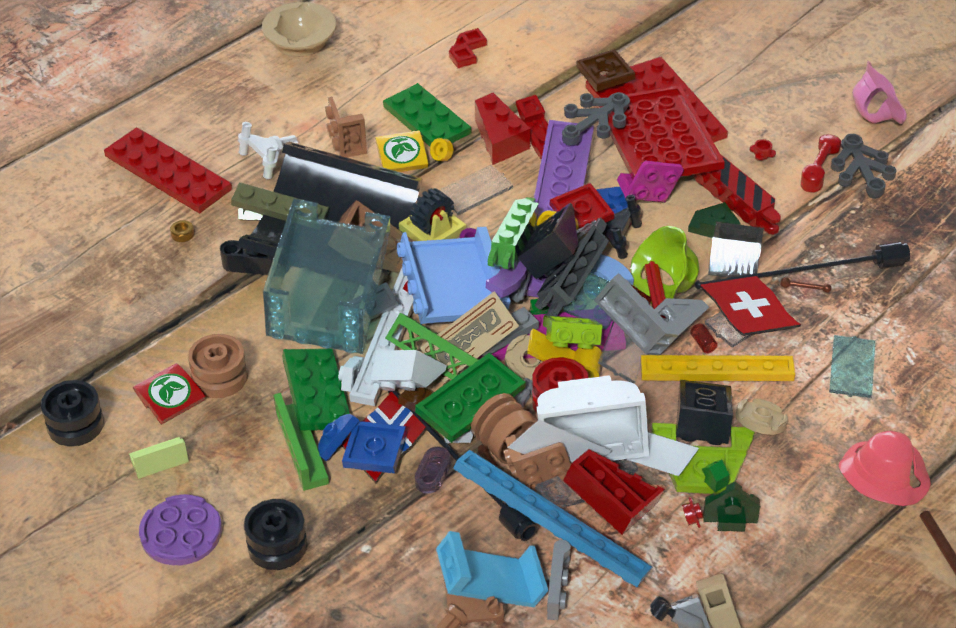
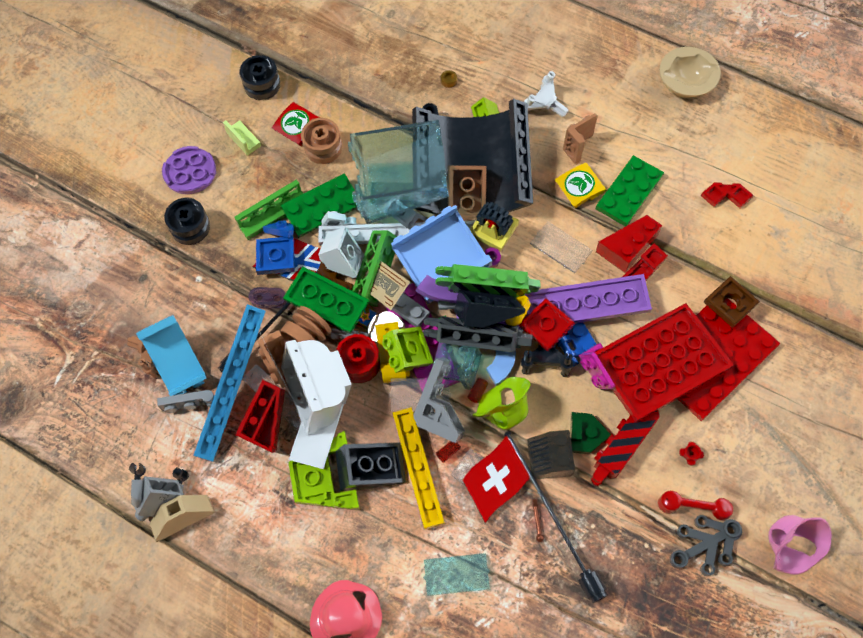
camera: 75 degrees right, 20 degrees up
(168, 170) = (506, 49): red plate -> none
(268, 202) = (477, 124): olive plate -> none
(441, 149) = (591, 211): yellow tile -> none
(614, 103) = (658, 308): dark grey plant -> none
(654, 284) = (483, 403): red axle -> none
(692, 512) = (267, 479): red plate -> none
(716, 475) = (296, 485): green piece -> none
(731, 508) = (272, 507): dark green plate -> none
(761, 416) = (365, 519): tan tile -> none

